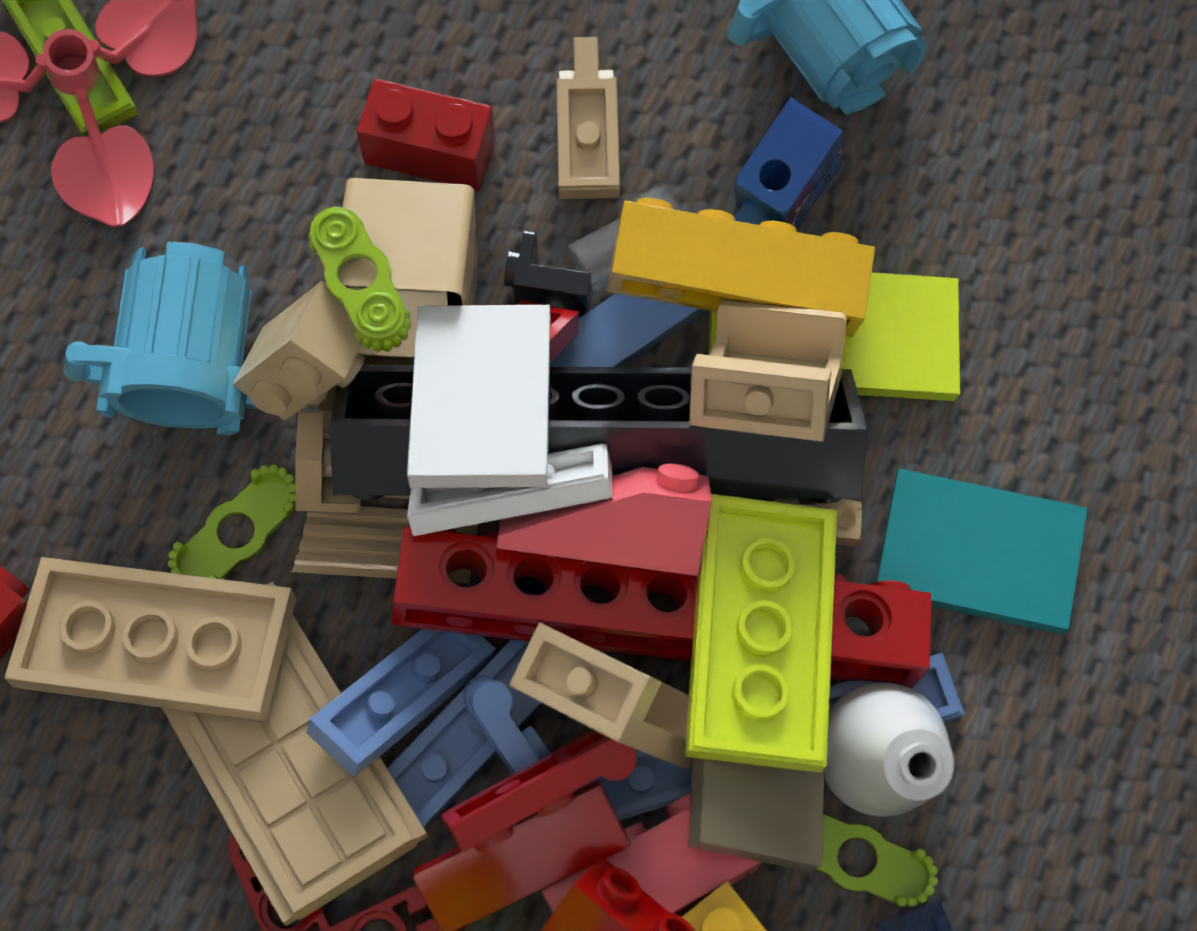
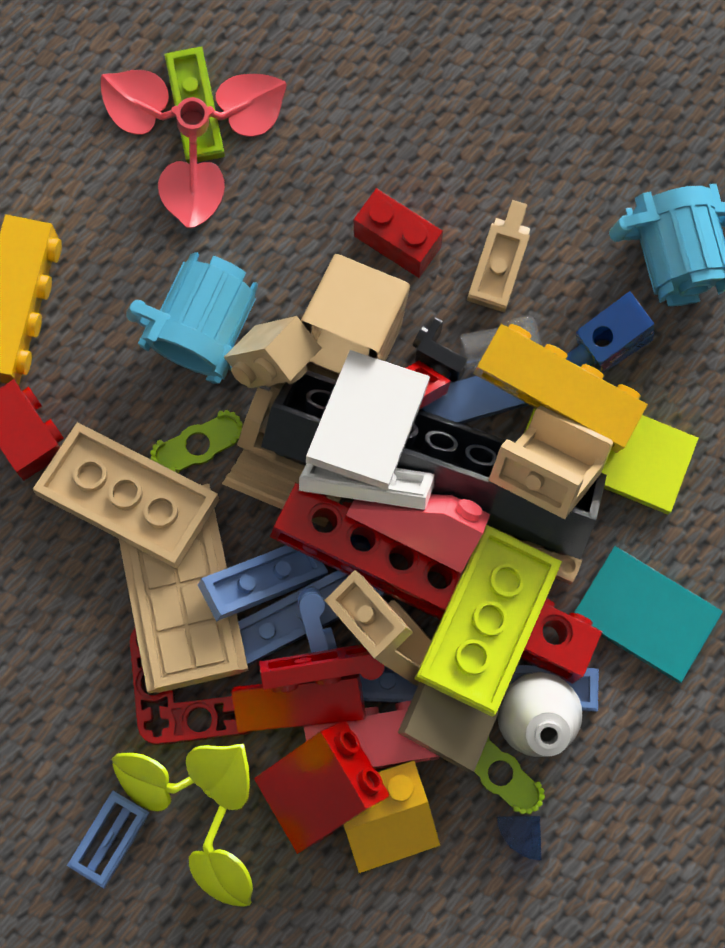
camera: 20 degrees right, 5 degrees up
(376, 310) = (321, 345): lime piece -> none

